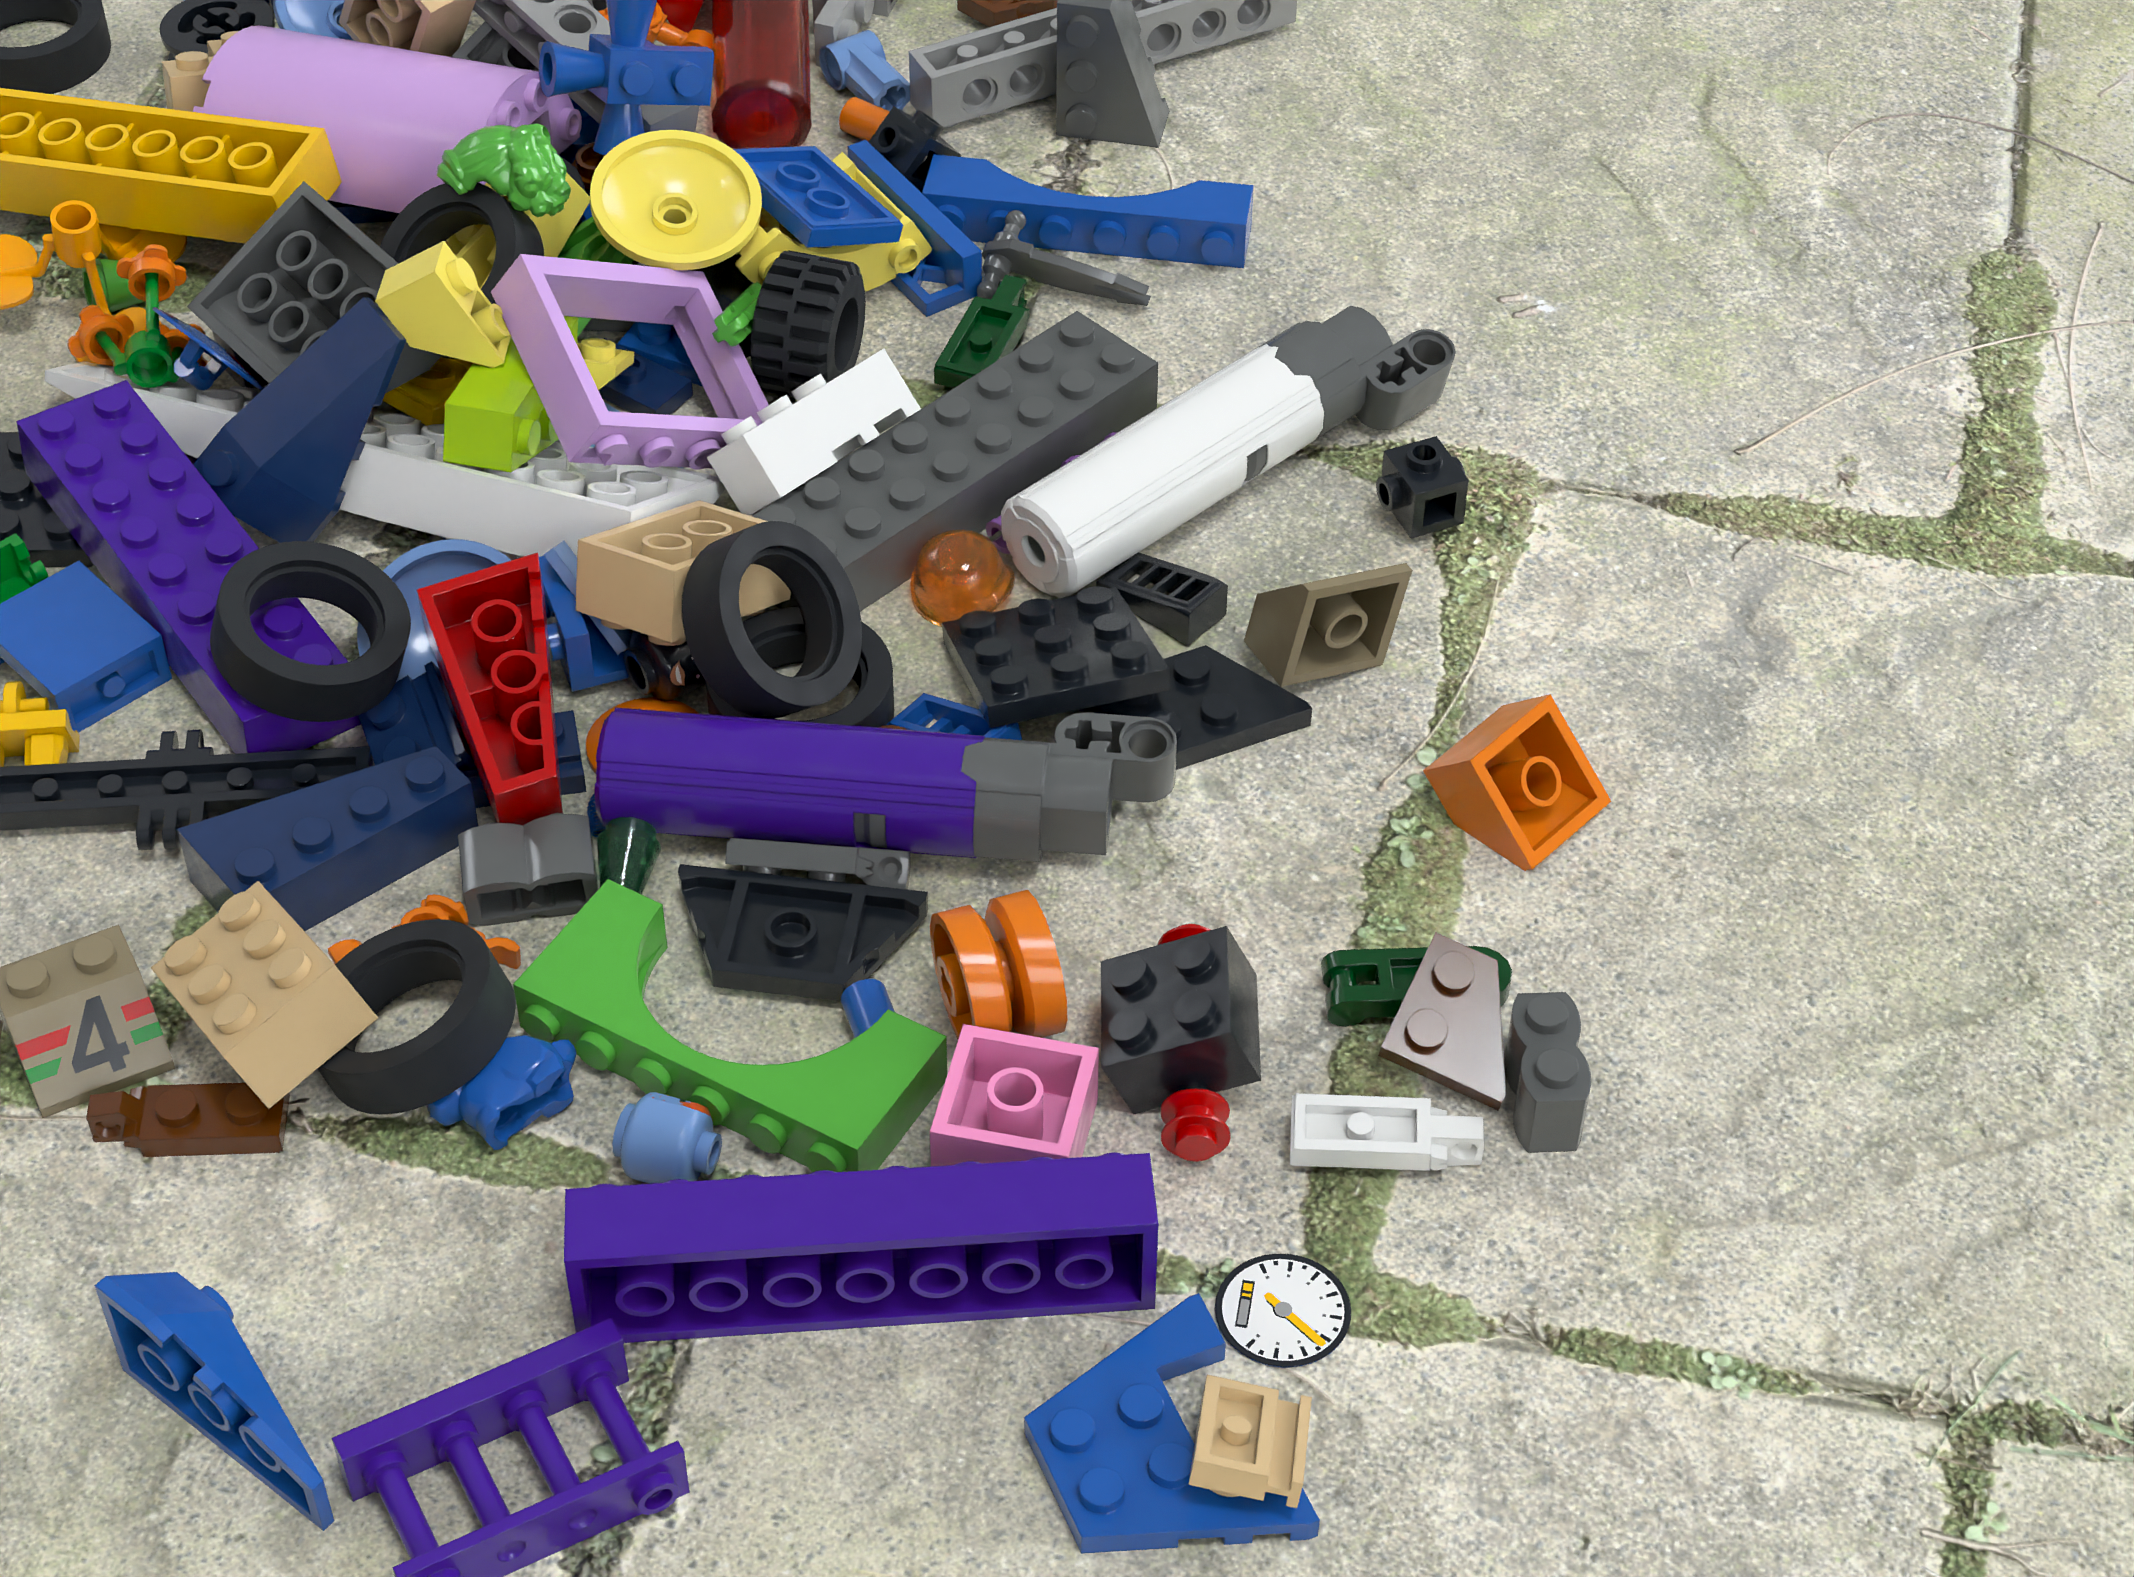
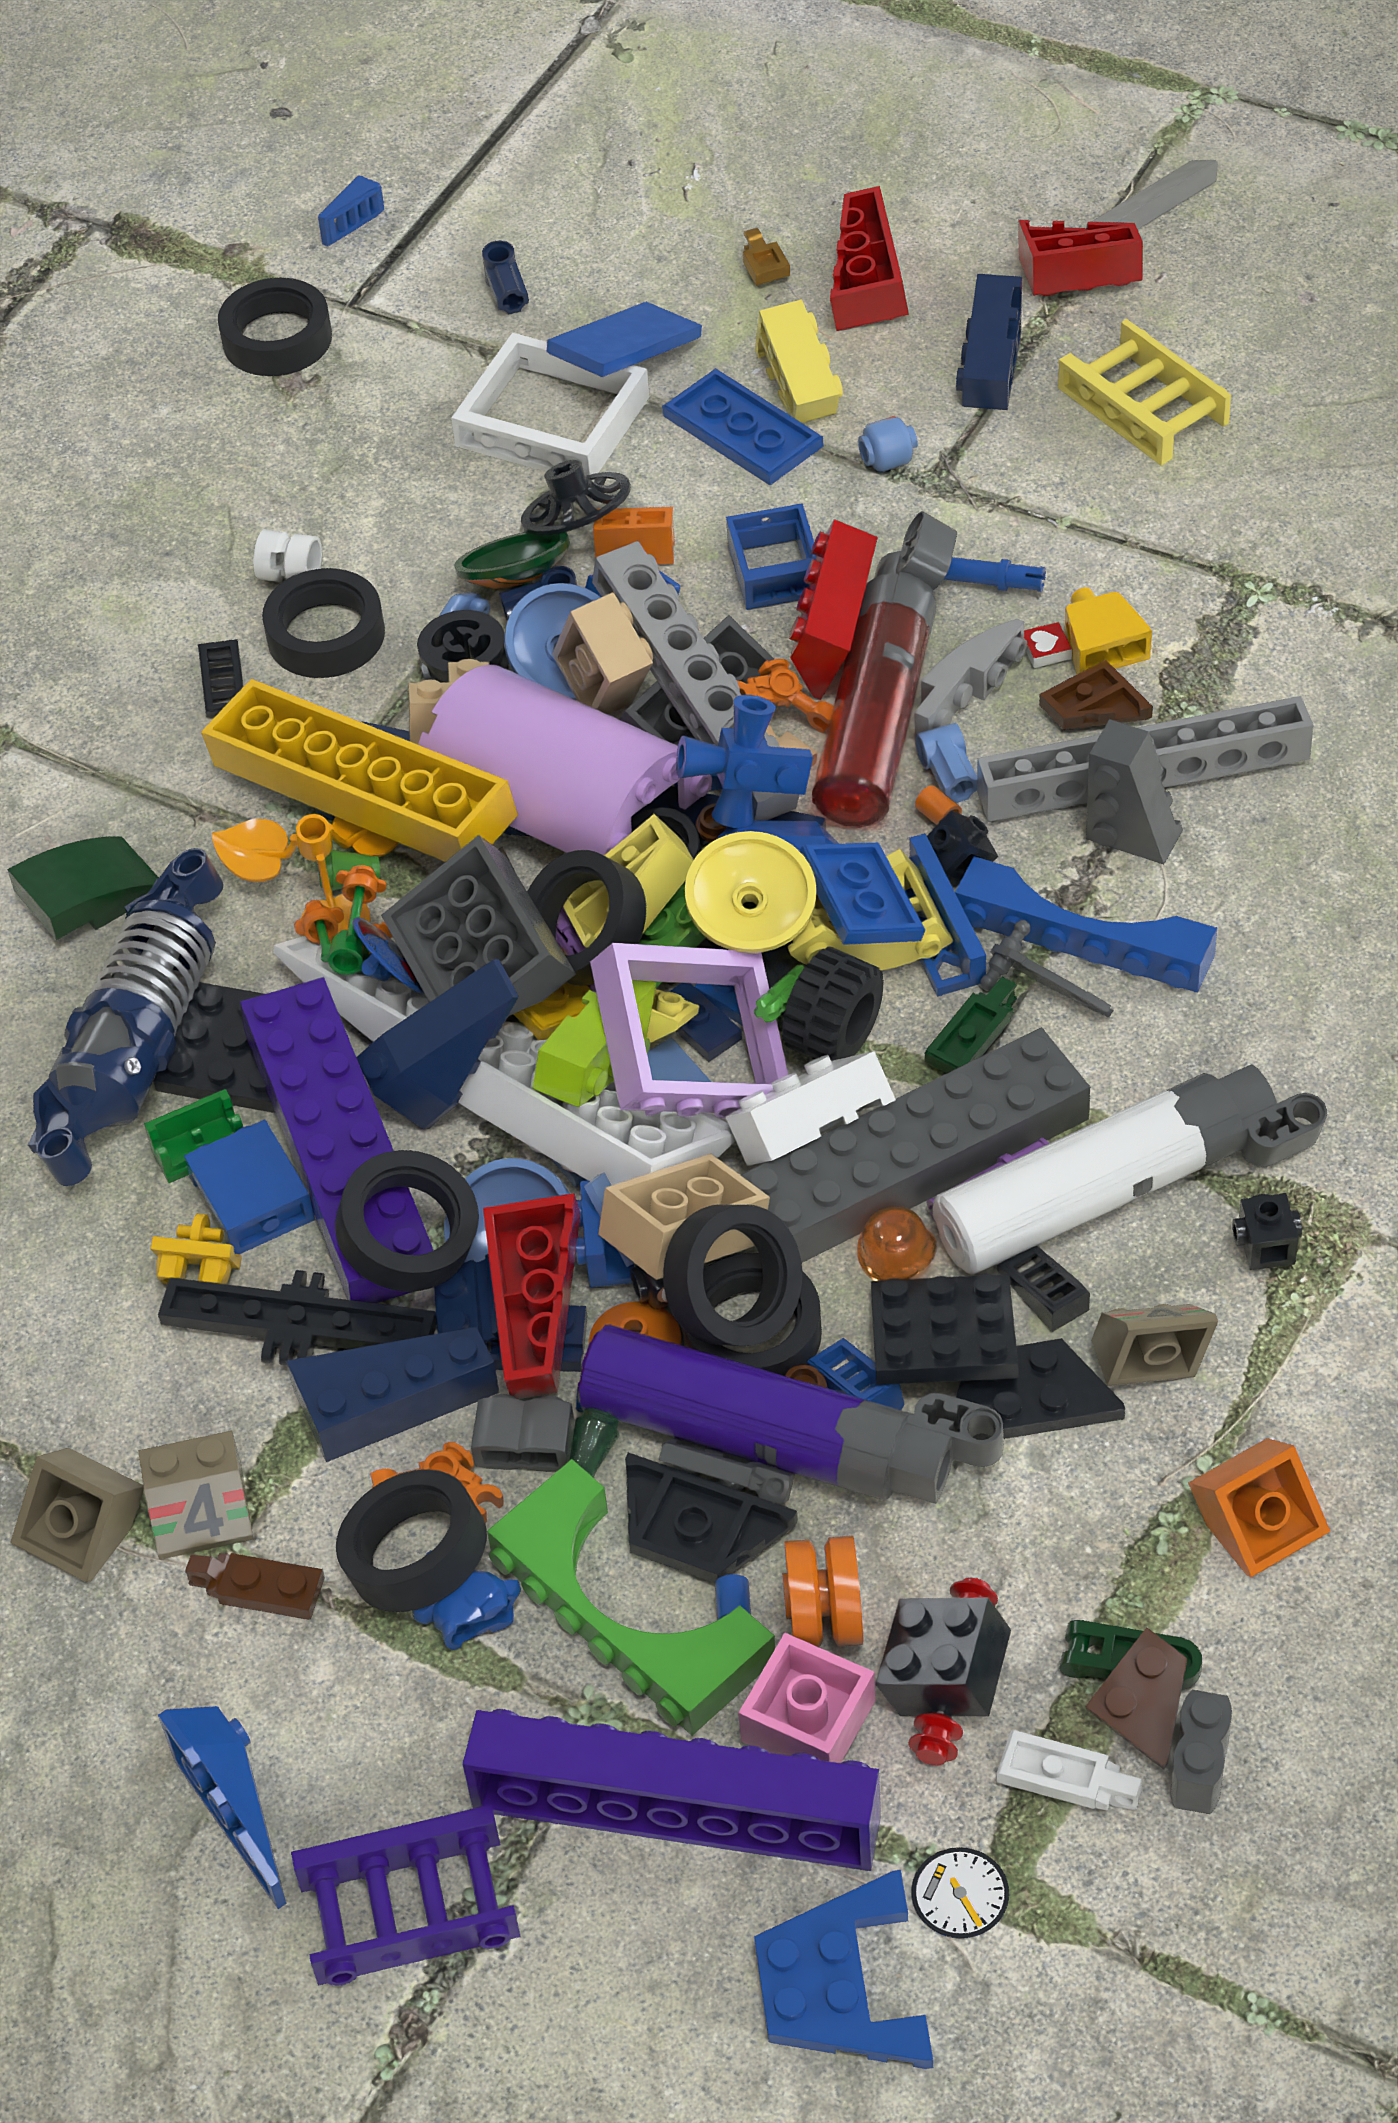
camera: 20 degrees right, 5 degrees up
(263, 993) = (316, 1506): tan brick -> none
(442, 309) = (551, 973): light yellow slope -> none
(514, 163) = (632, 847): bright green hair -> none
(666, 1139) = (566, 1671): medium blue head -> none
(1250, 1441) = (900, 1991): tan plate -> none

